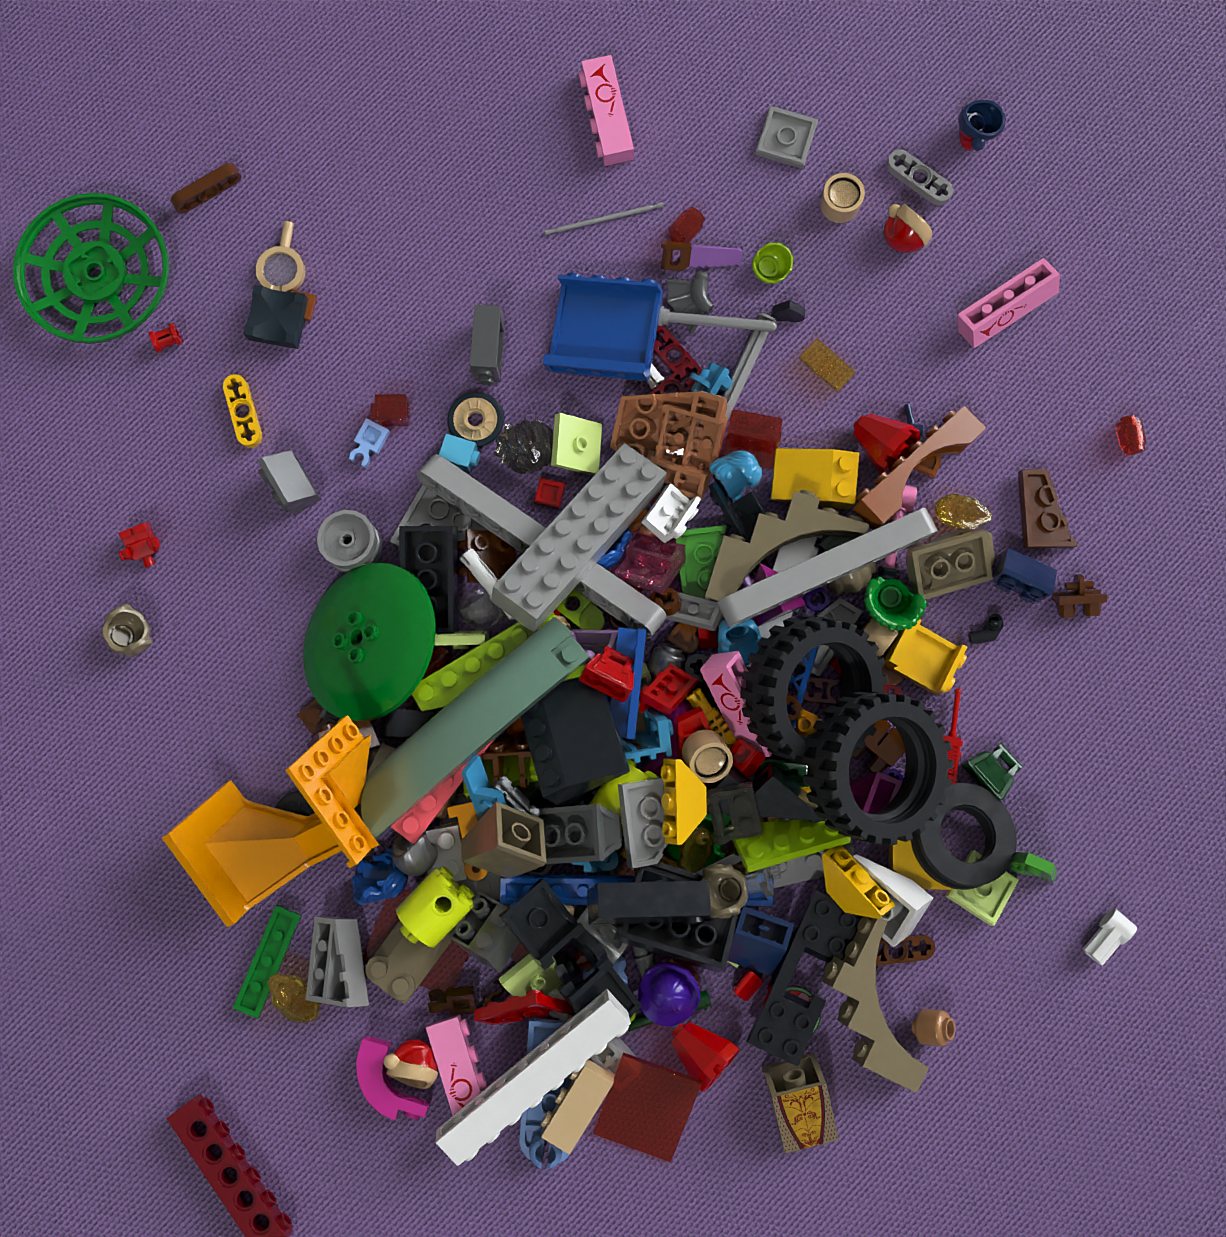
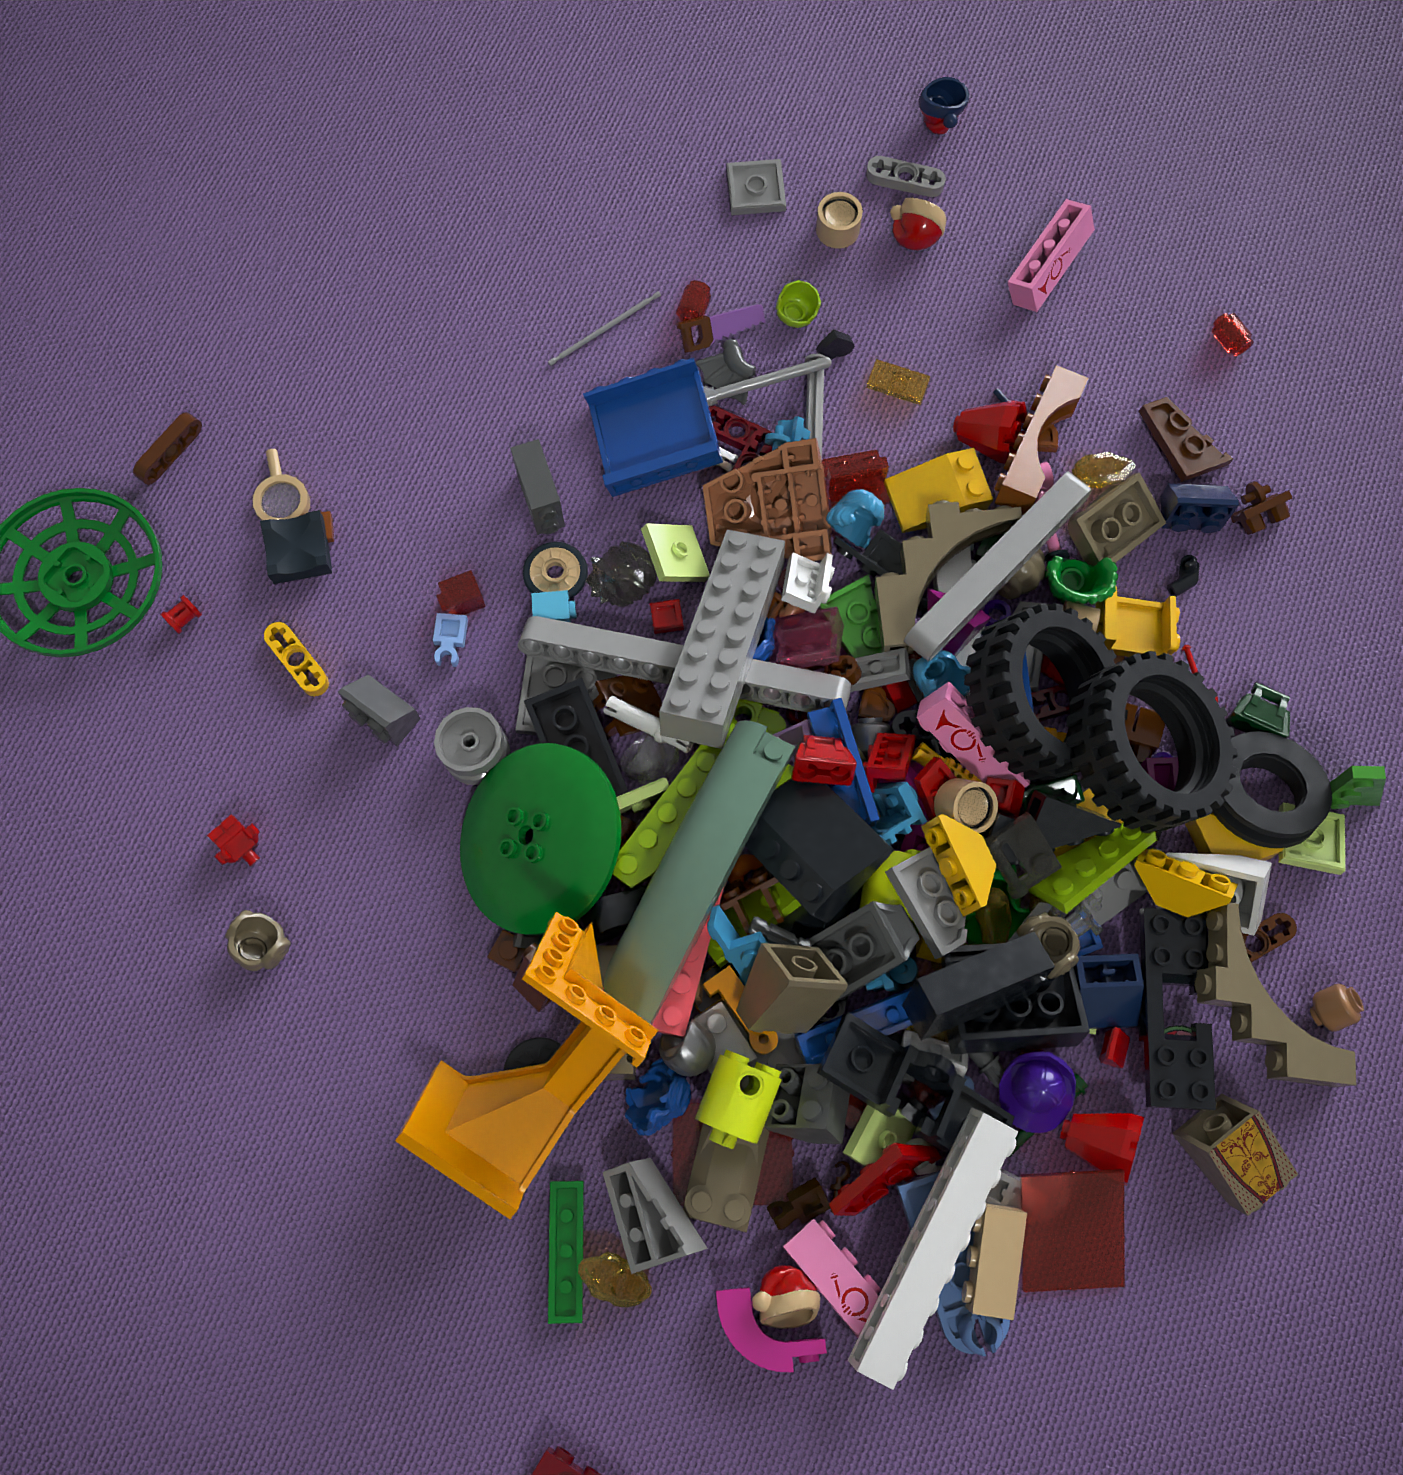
camera: 25 degrees left, 10 degrees down
(607, 110) = (564, 224): bright pink brick -> none

